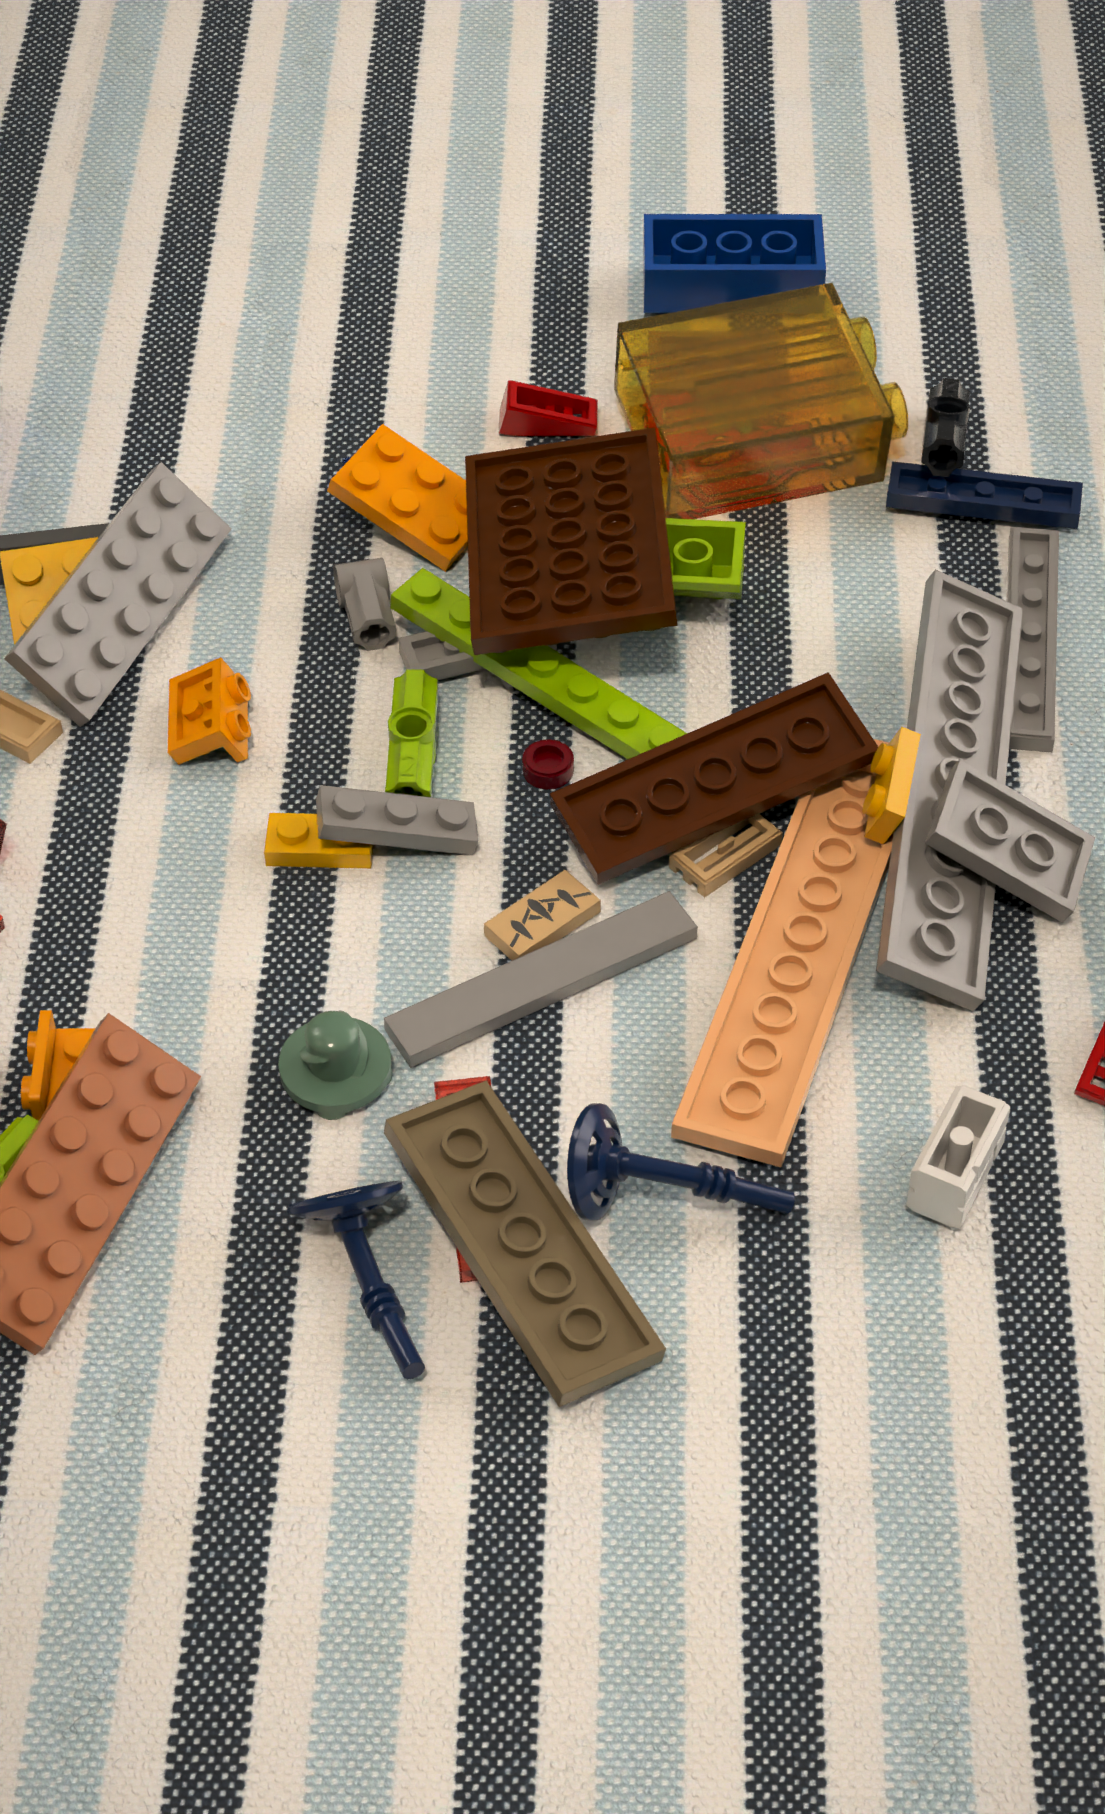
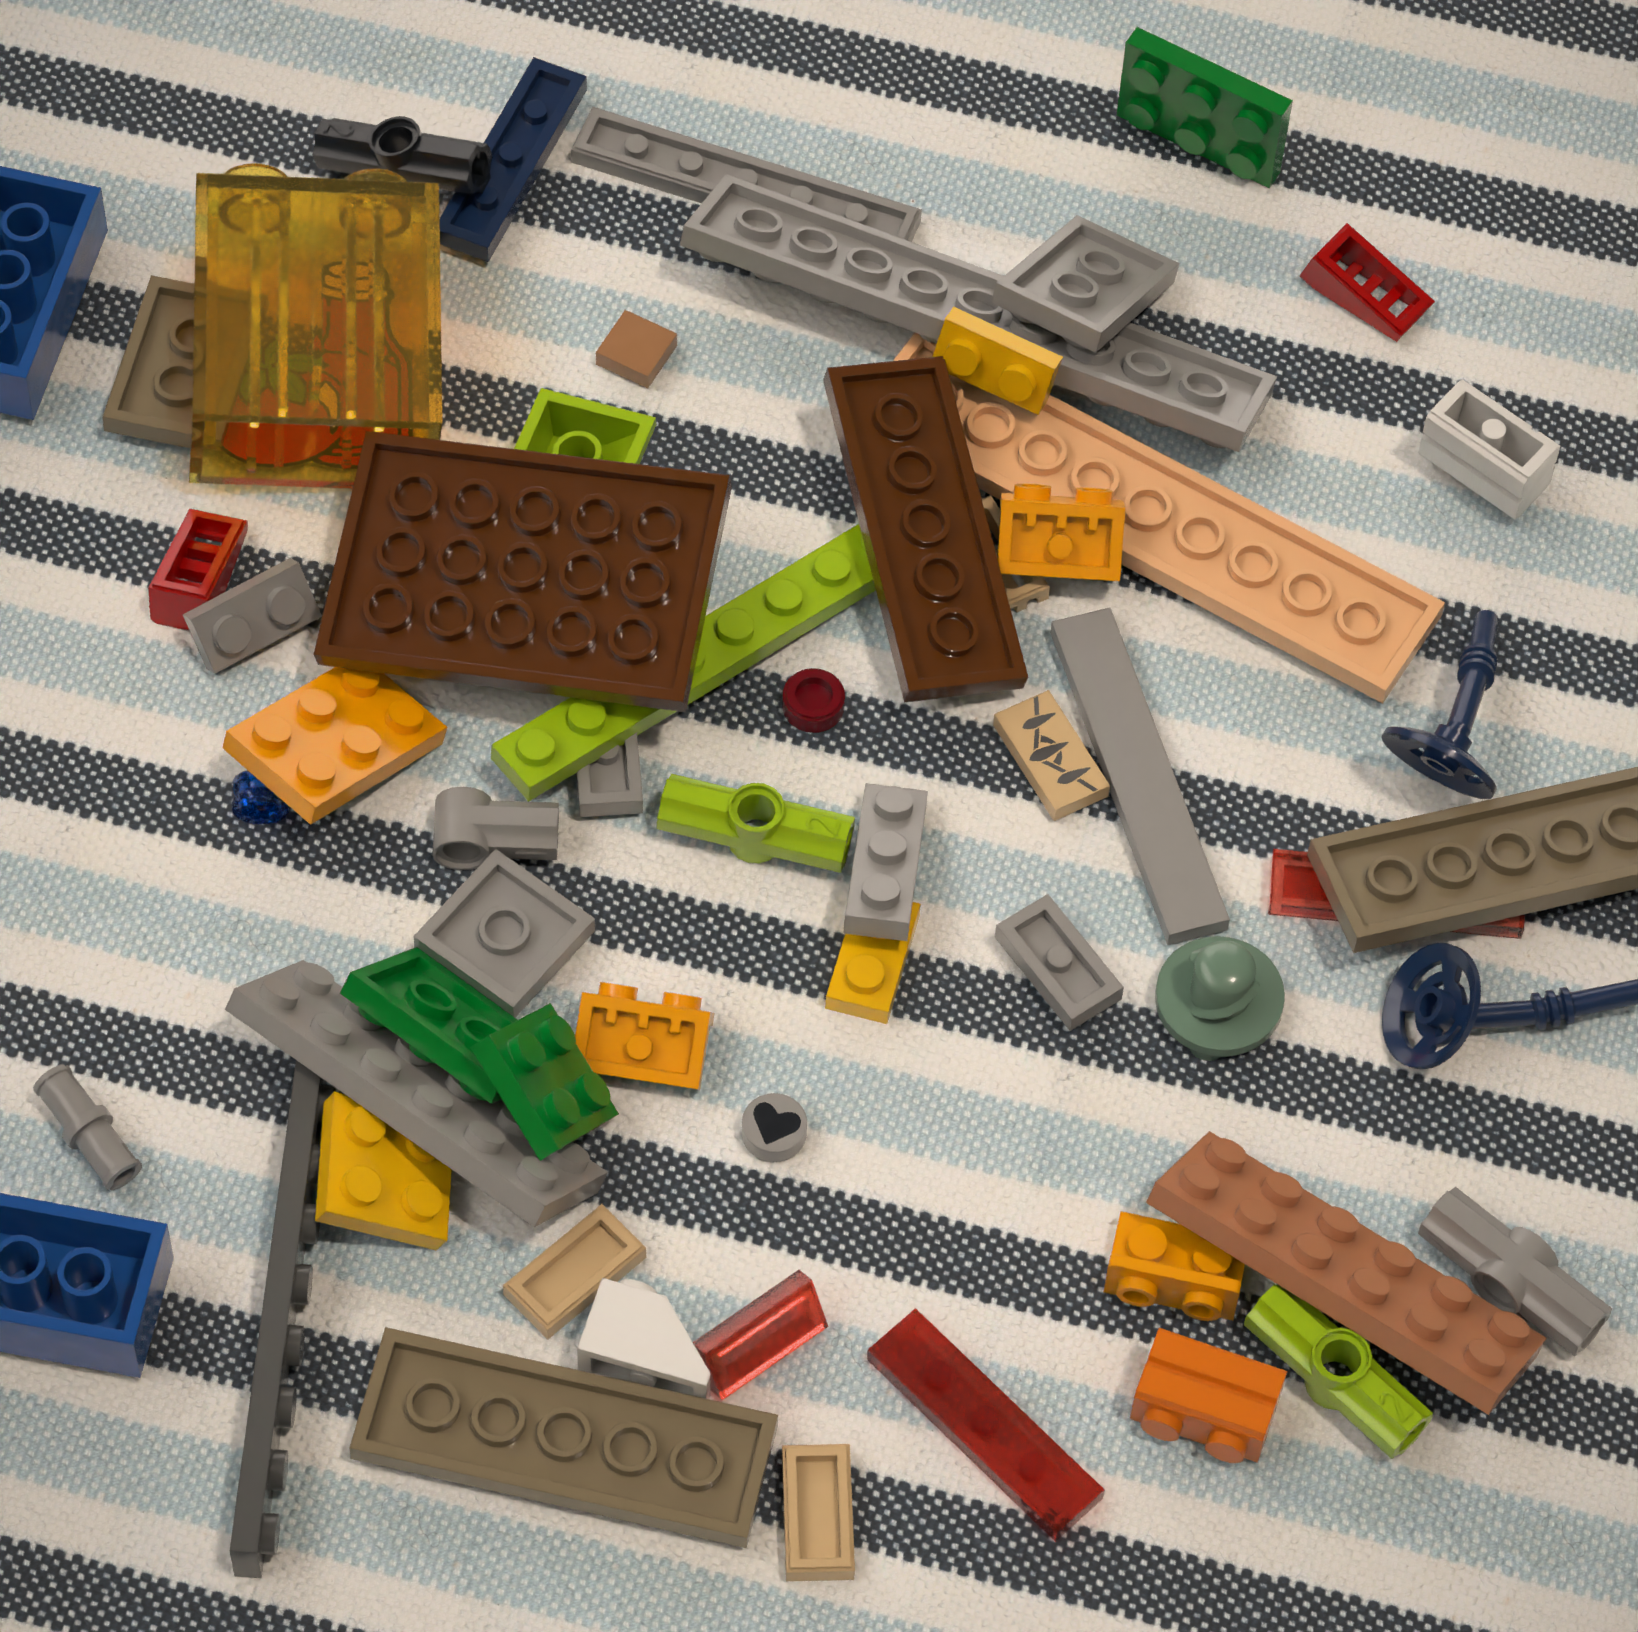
camera: 80 degrees left, 10 degrees up
(69, 451) = (87, 1127): none -> light grey pin
(101, 1312) = (1514, 1270): none -> light grey piece
(132, 645) = (545, 1080): none -> green plate
(150, 808) = (774, 1127): none -> light grey tile
(180, 599) = (431, 1012): none -> green plate
(278, 624) = (505, 932): none -> light grey plate
(337, 950) = (1059, 962): none -> light grey plate
(498, 429) = (252, 615): none -> light grey plate
(745, 865) = (1061, 534): none -> light orange bracket
(840, 601) = (636, 349): none -> medium nougat tile

